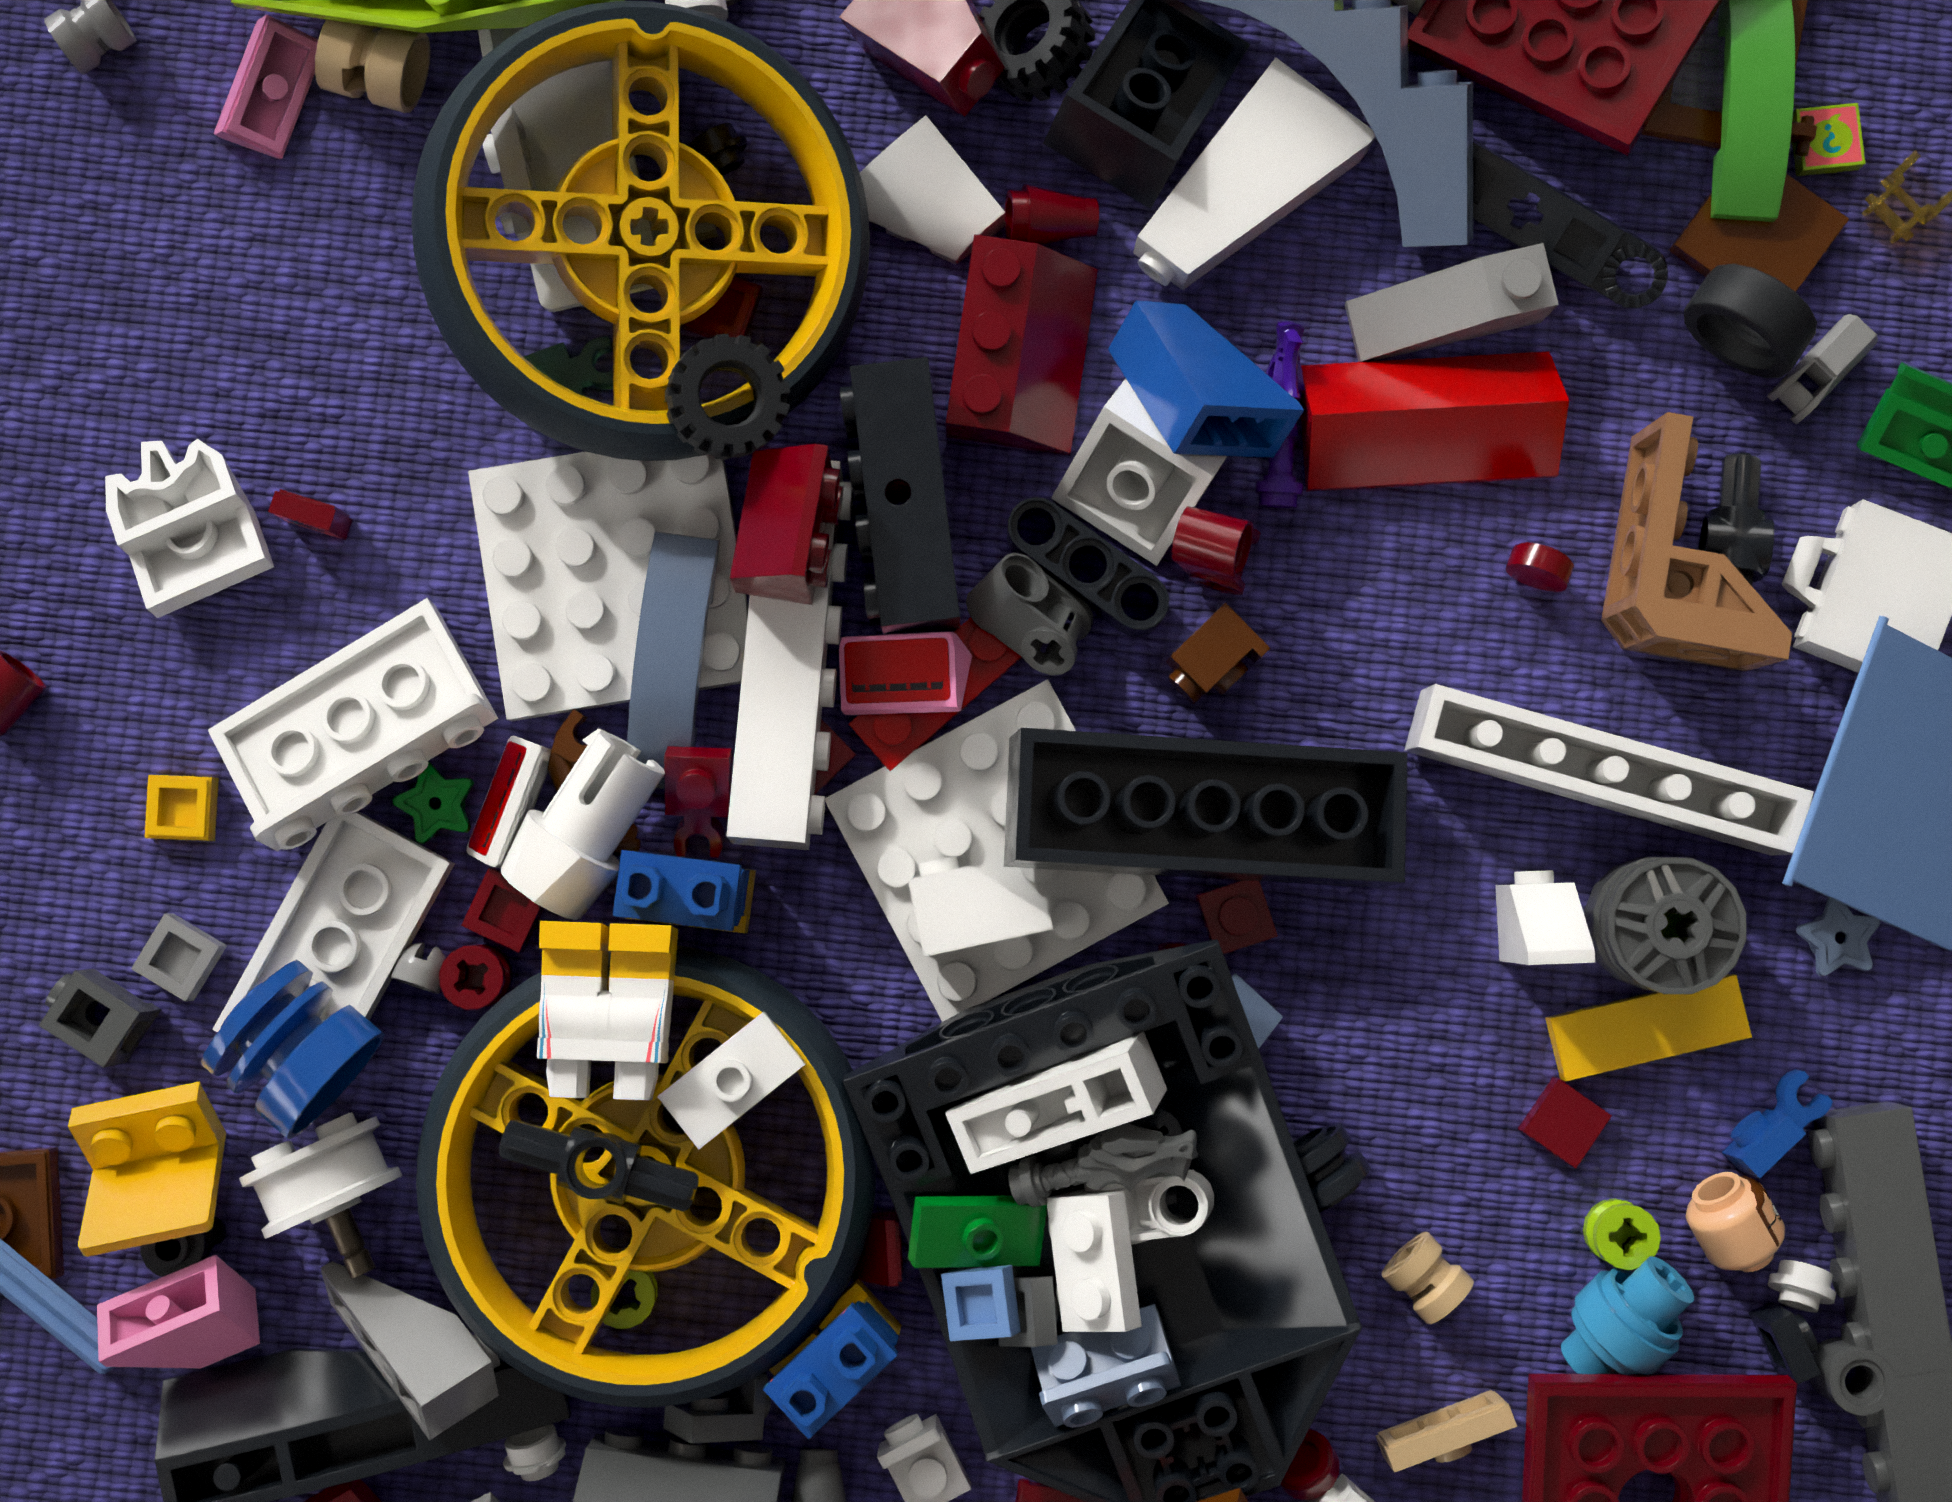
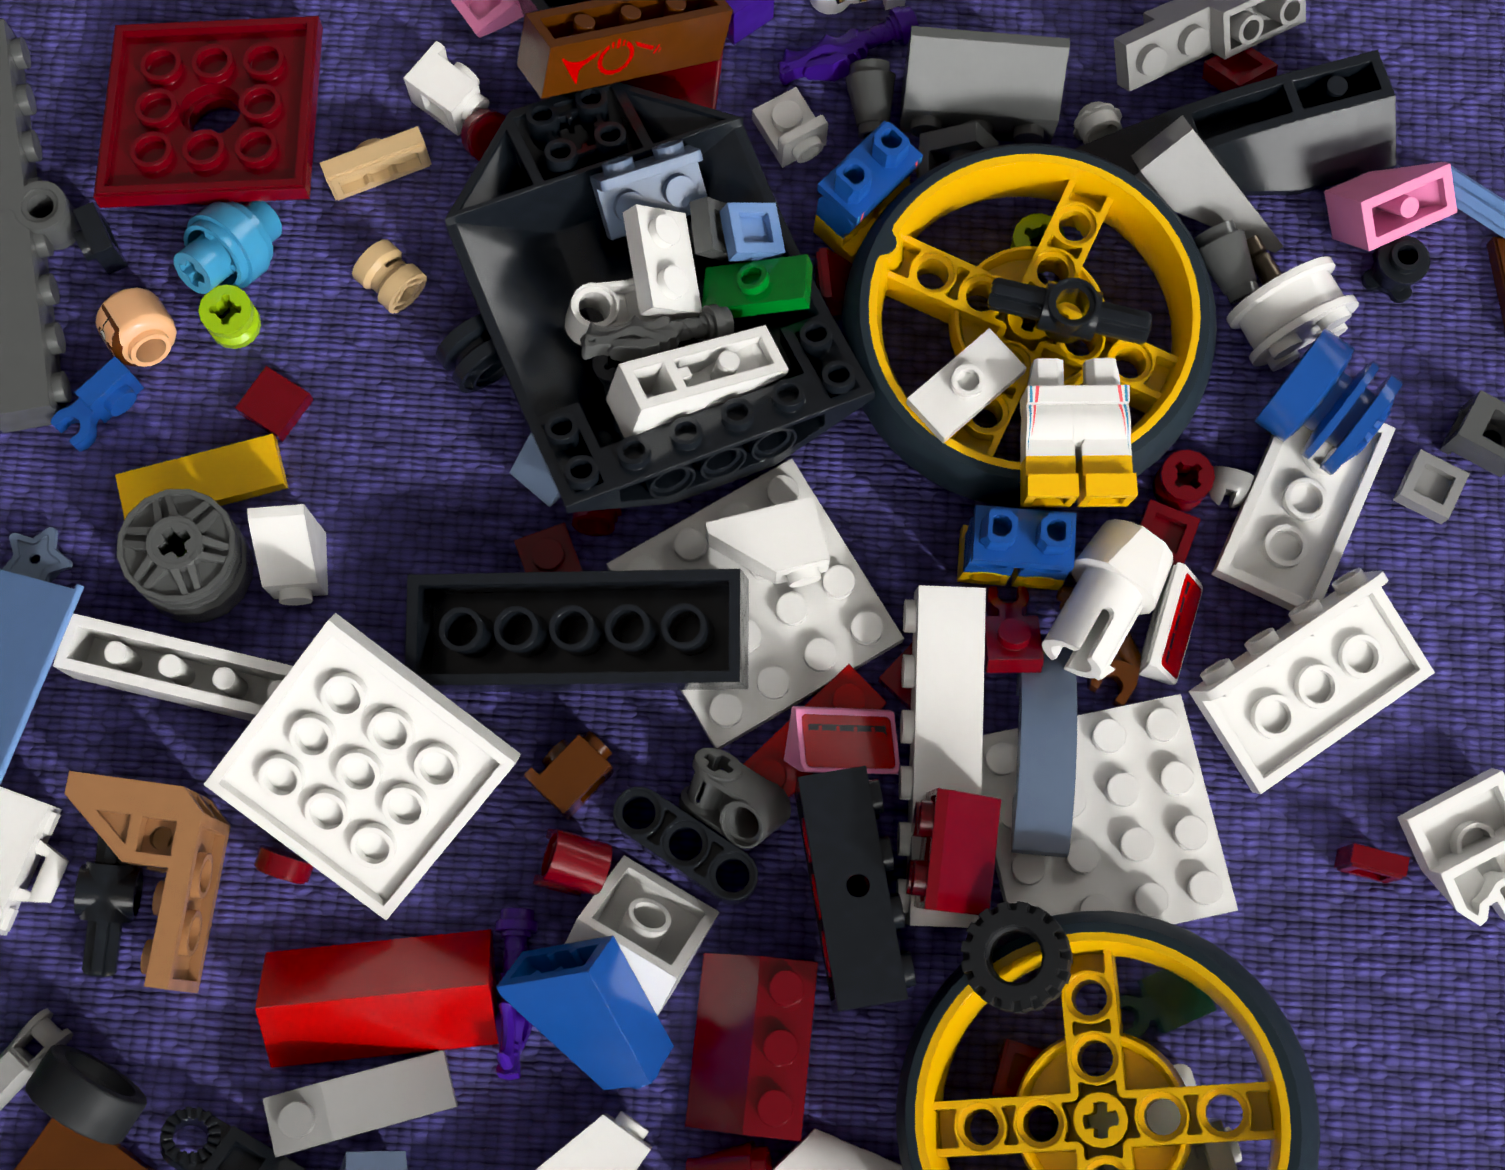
camera: 175 degrees right, 10 degrees down
(151, 1165) = (1429, 314): yellow bracket -> none
(181, 807) = (1446, 611): yellow tile -> none
(392, 1243) = (1228, 260): none -> dark grey cone
(451, 812) = (1220, 630): green plate -> none
(1455, 657) = (361, 767): none -> white plate
(1802, 1285) = (83, 282): white plate -> none

